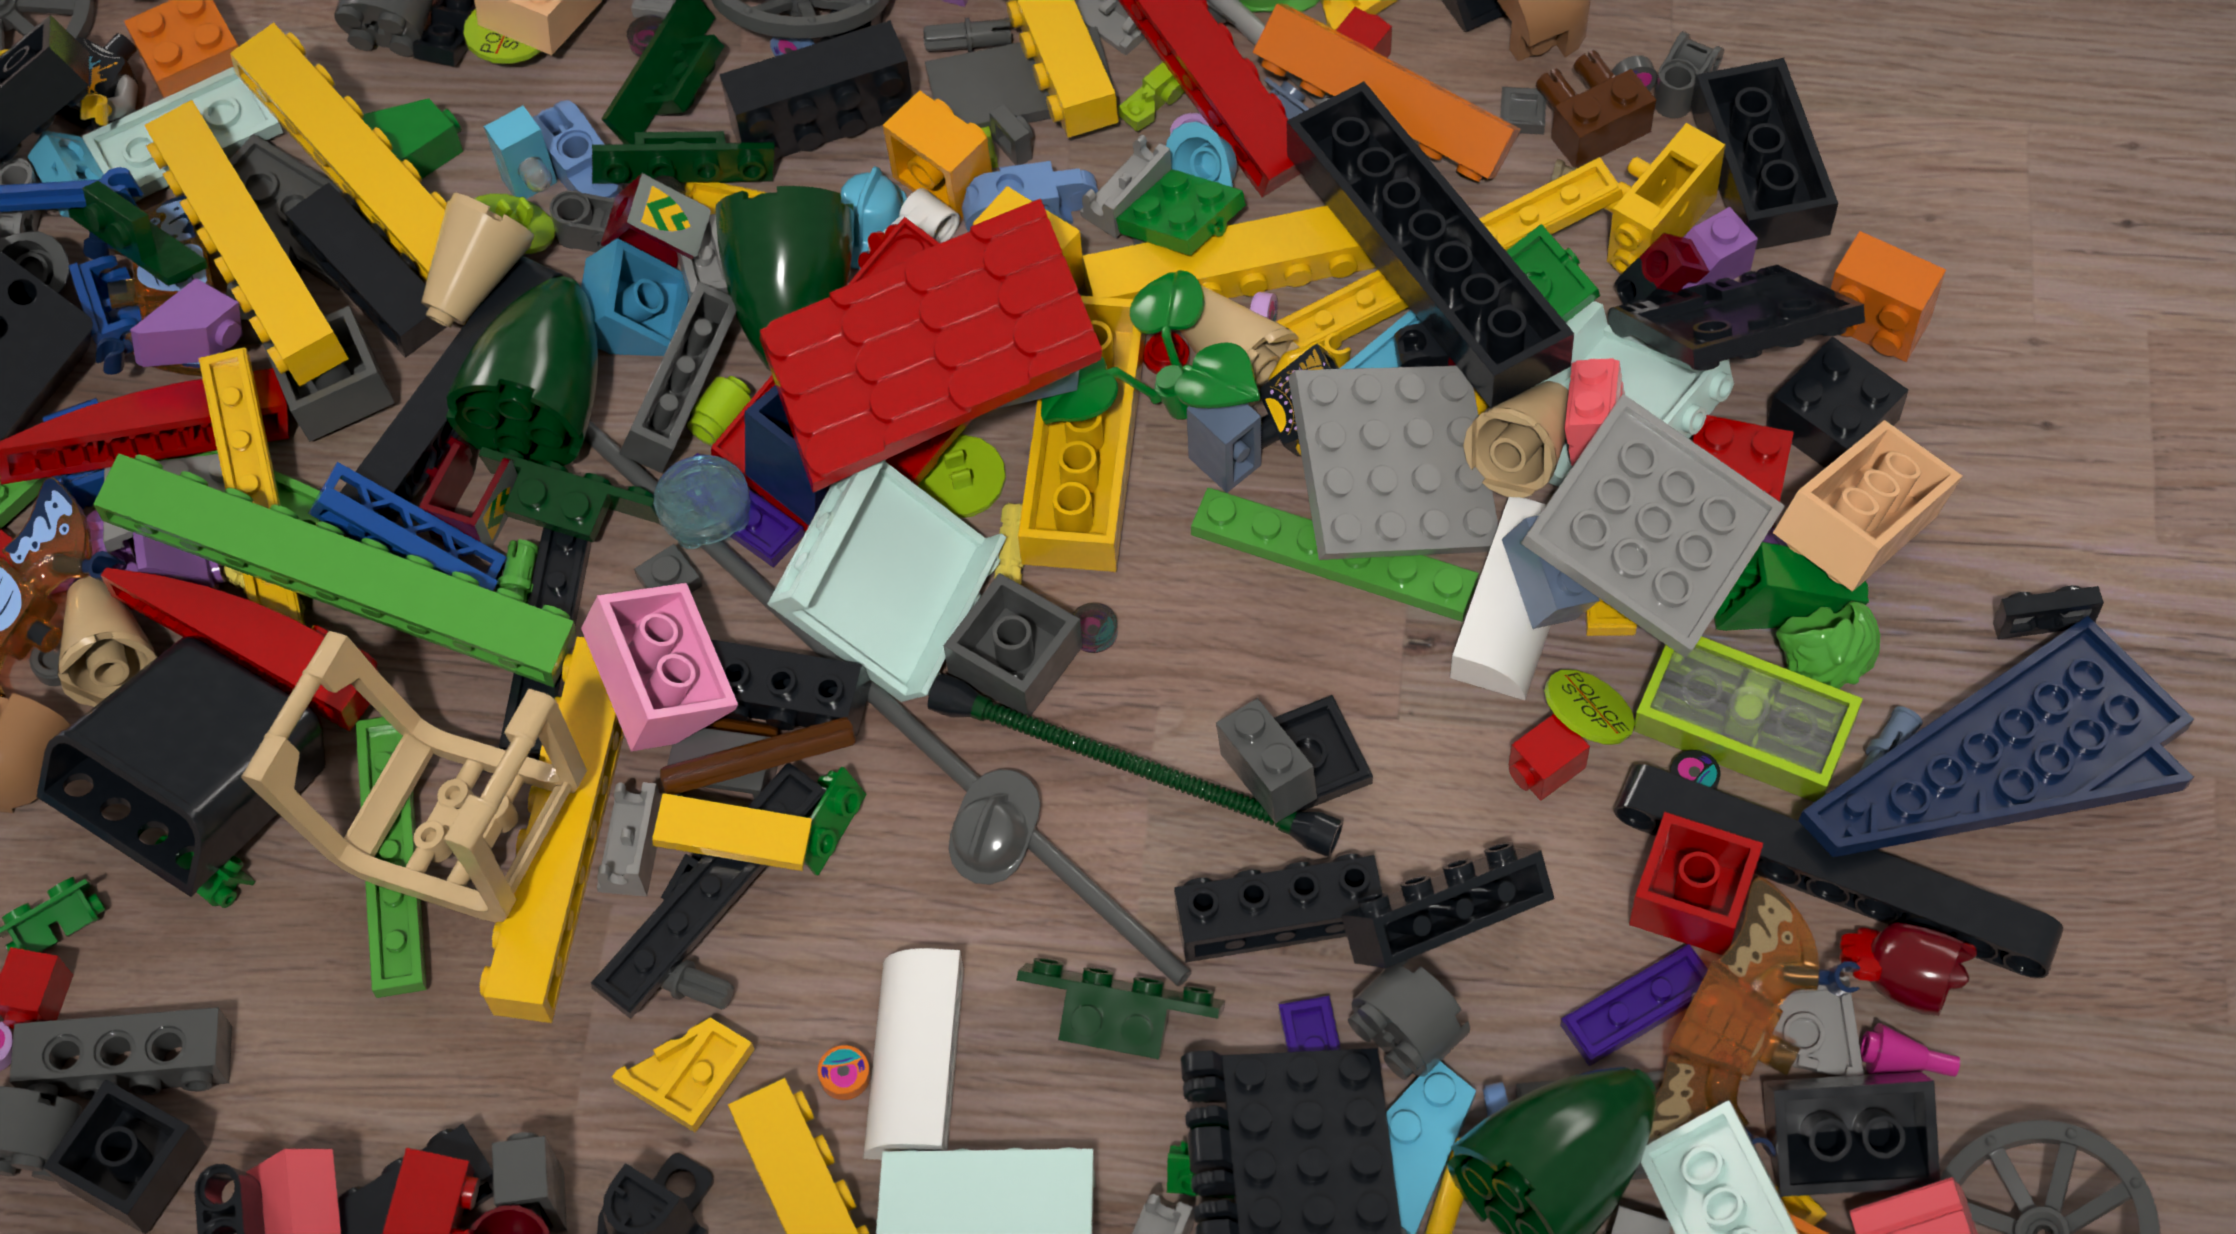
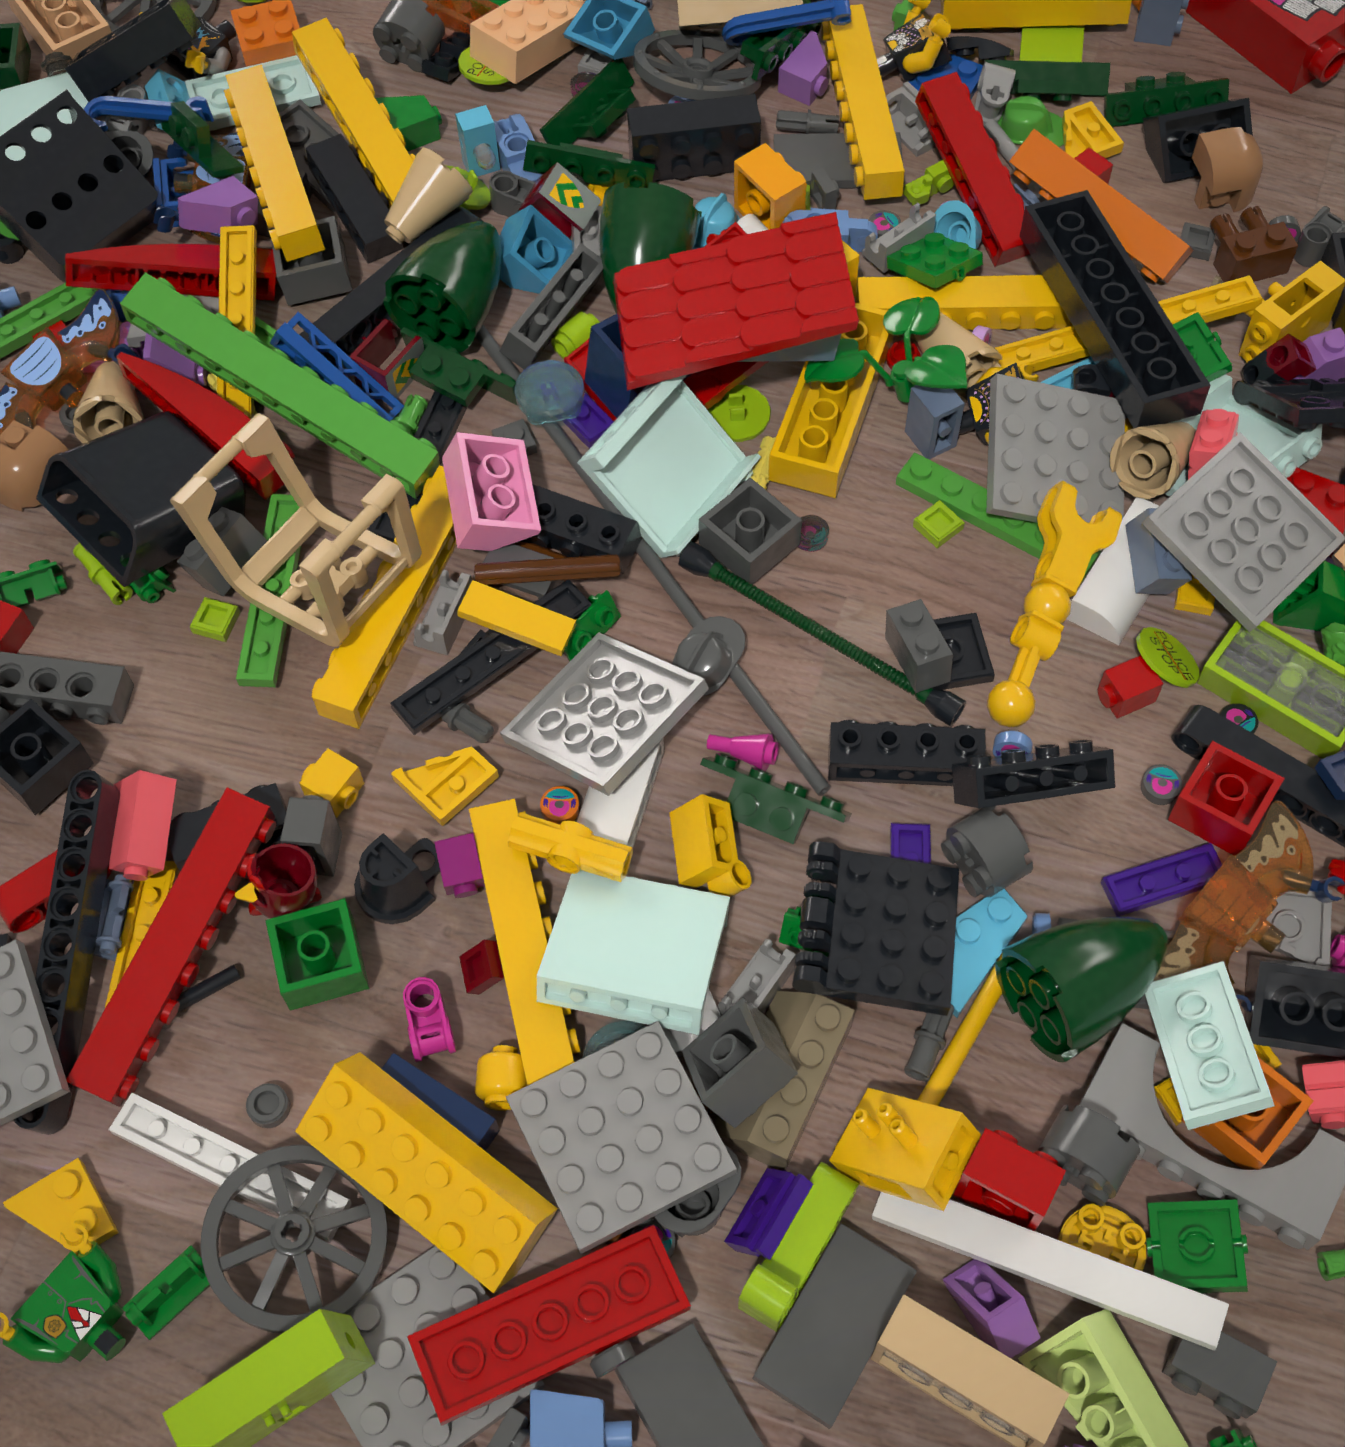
camera: 10 degrees right, 0 degrees up
(149, 884) = (101, 576): none -> lime pin
(320, 912) = (215, 619): none -> lime tile
(331, 796) = (240, 539): none -> dark grey brick
(536, 1104) = (333, 780): none -> yellow brick
(733, 1182) = (460, 865): none -> magenta brick
(873, 1129) = (570, 847): none -> yellow piece
(875, 936) = (604, 712): none -> light grey plate
(1050, 1088) = (707, 847): none -> yellow hinge
(1081, 943) = (753, 749): none -> dark pink cone
(1102, 163) = (884, 221): none -> tile
(1259, 581) = (938, 524): none -> lime tile
(1412, 864) = (1011, 740): none -> medium blue tile
(1427, 631) = (1047, 605): none -> yellow piece
(1612, 879) = (1161, 784): none -> tile

